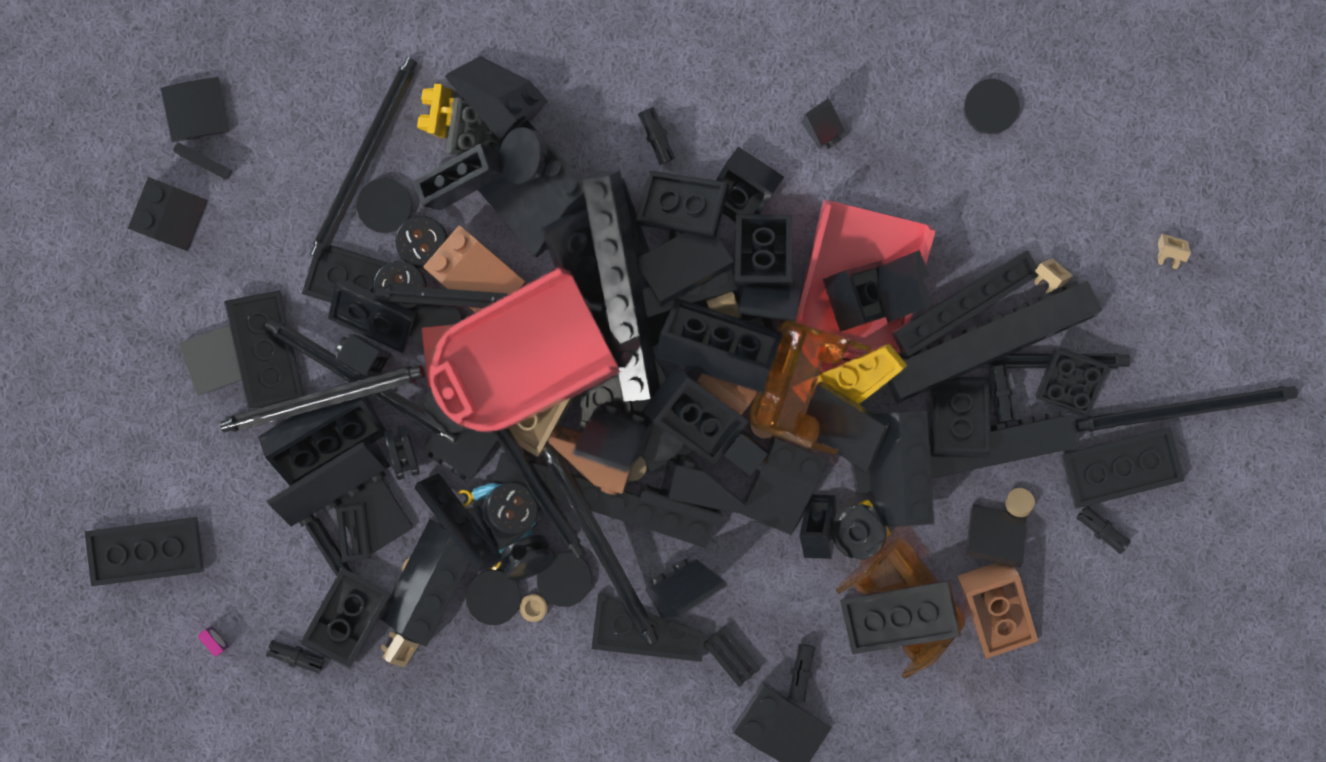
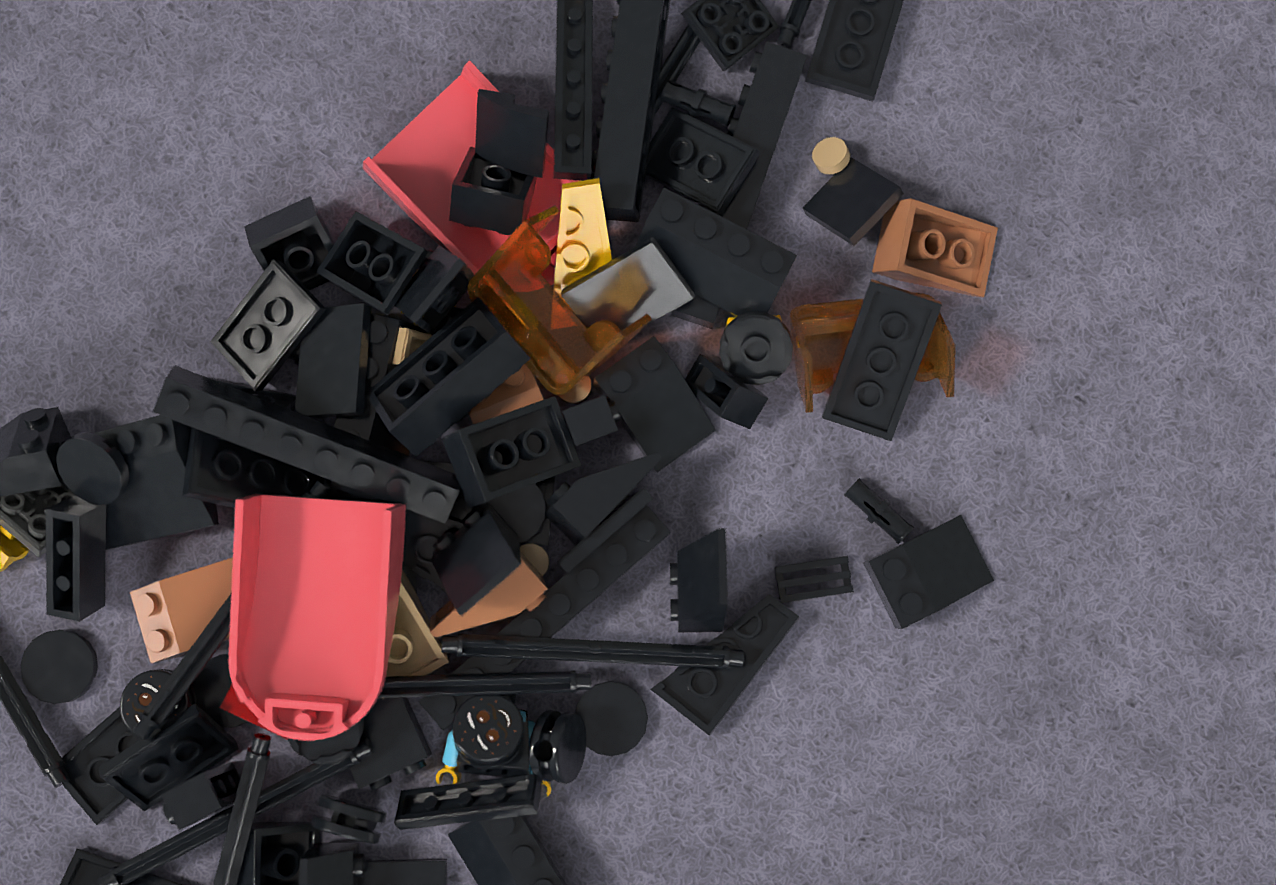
camera: 60 degrees left, 5 degrees down
(419, 239) = (119, 649): black head -> none
(493, 597) = (582, 814): black tile -> none
(533, 607) = (622, 774): tan tile -> none
(656, 136) = (176, 310): black pin -> none
(823, 125) = (278, 118): black slope -> none
(1103, 529) = (915, 84): black pin -> none

